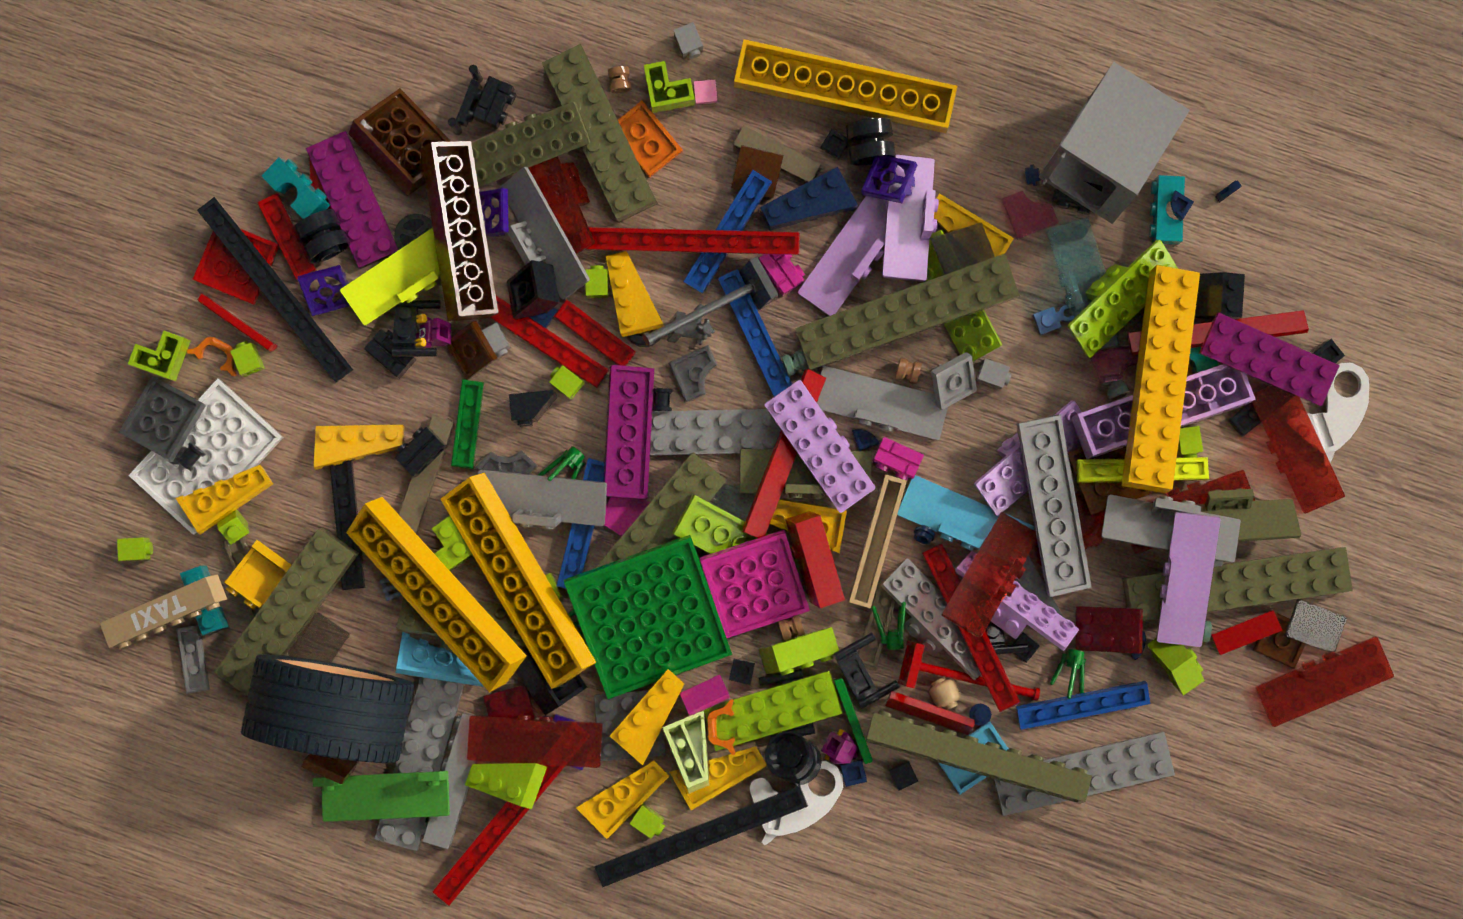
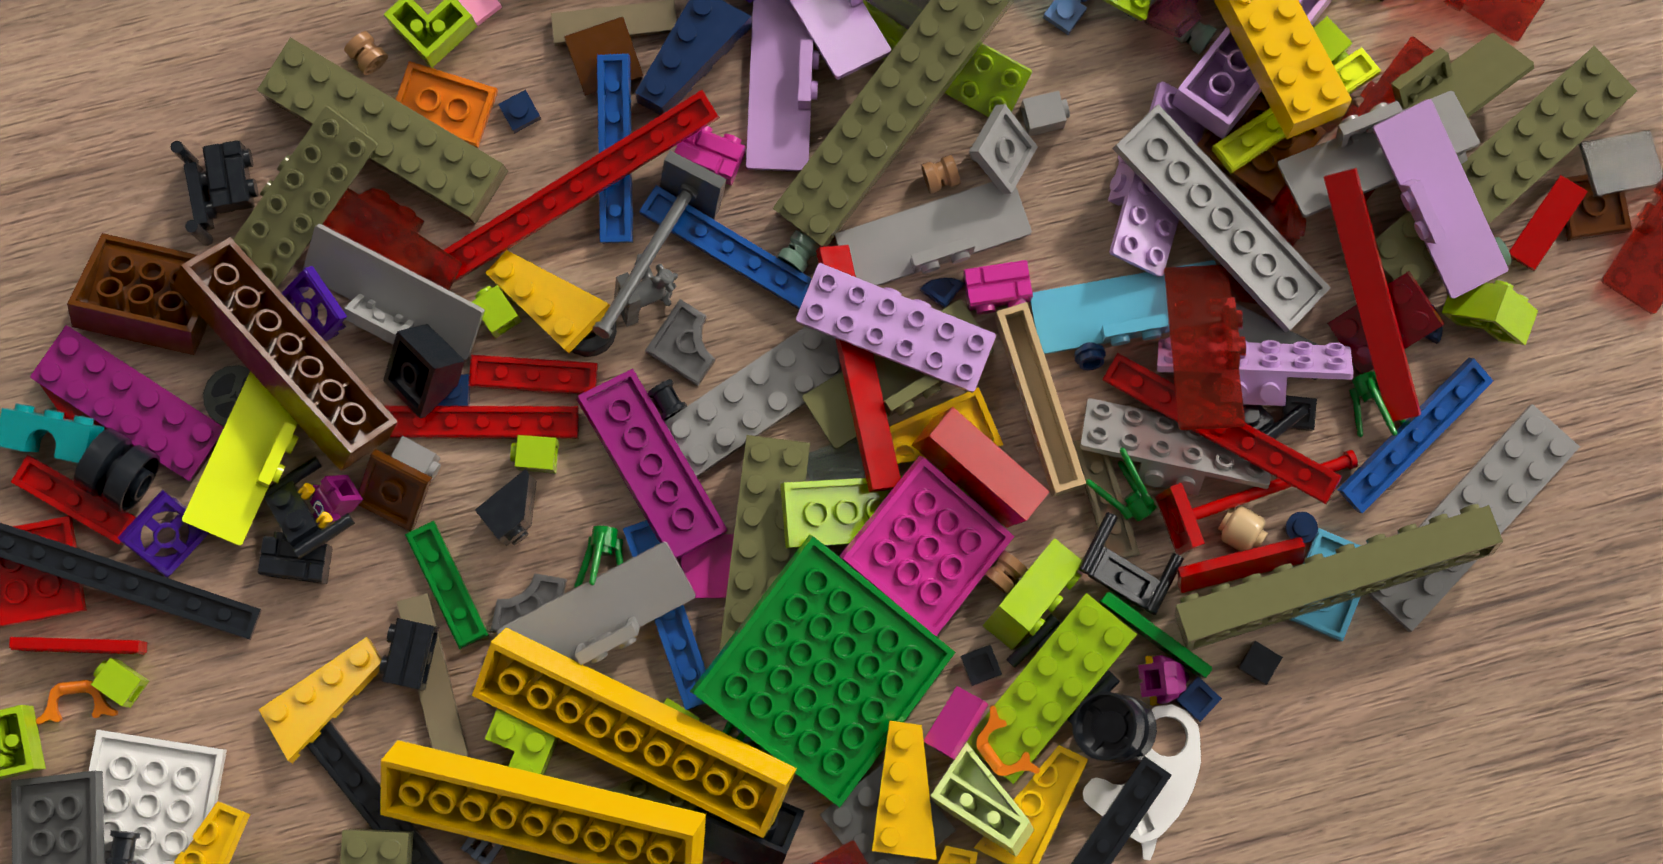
camera: 40 degrees left, 5 degrees down
(687, 172) = (519, 111): none -> dark blue plate
(1110, 608) = (1372, 294): none -> red tile

